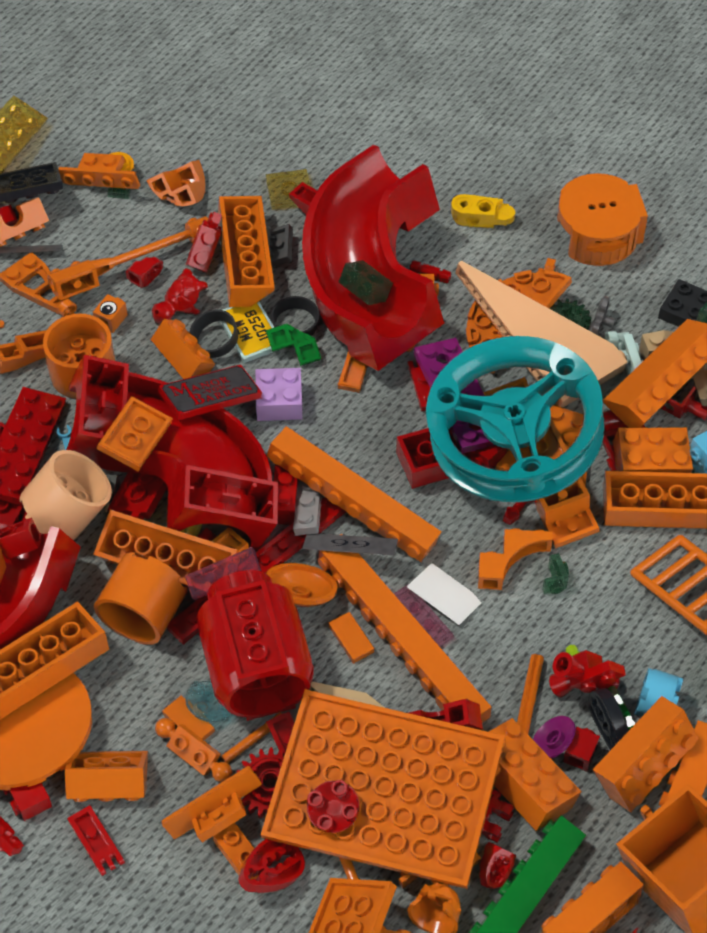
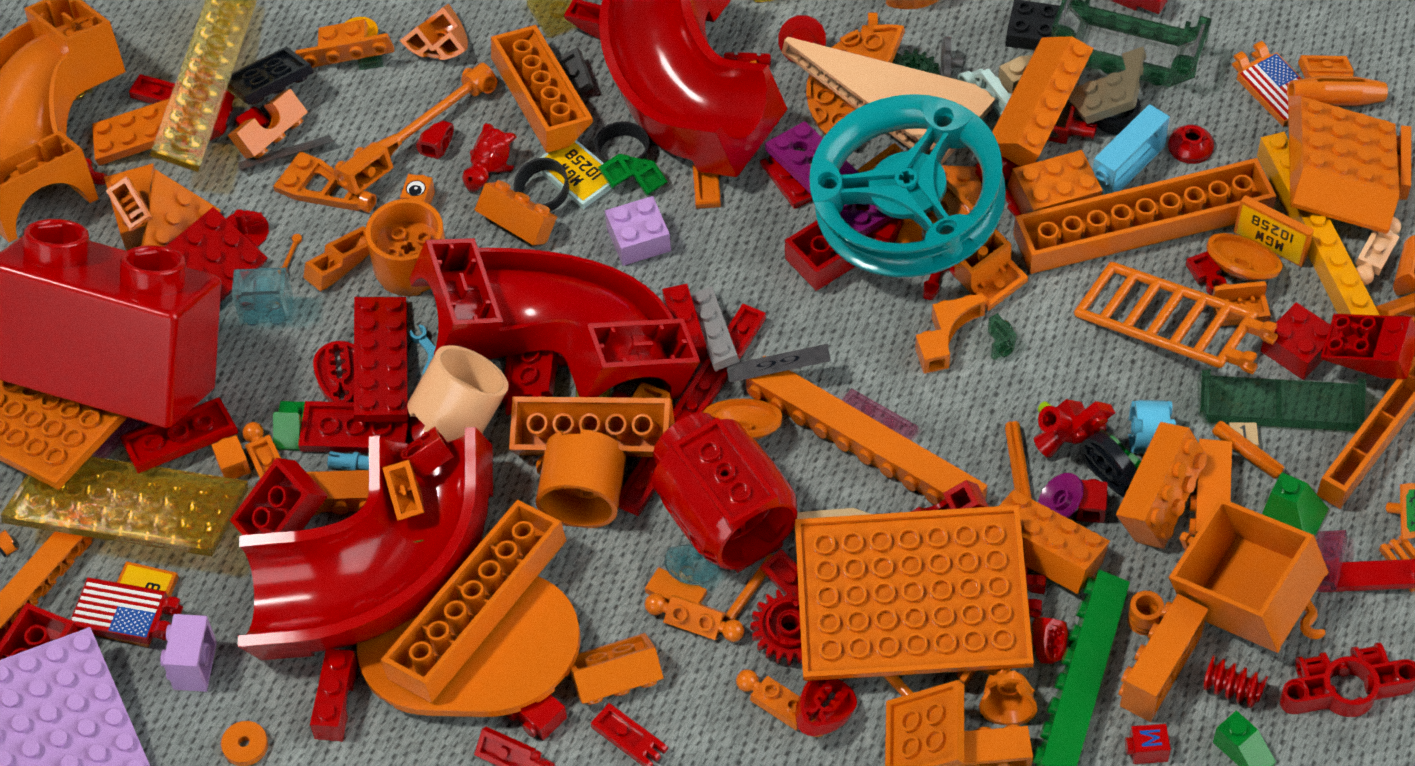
camera: 15 degrees left, 0 degrees up
(134, 433) = (511, 309): orange tile -> none
(202, 579) = (643, 440): clear pink tile -> none
(205, 243) = (493, 91): red hinge -> none
(209, 392) = (568, 246): tile -> none
(215, 808) = (743, 667): orange bracket -> none
(333, 806) = (869, 625): red dish -> none
(351, 637) = (812, 459): orange tile -> none
(353, 493) = (760, 310): orange brick -> none
(365, 282) = (689, 87): brick -> none
(444, 593) = (892, 387): white sticker -> none
(484, 259) = (802, 28): none -> red piece
(590, 865) = (1144, 611): none -> orange piece

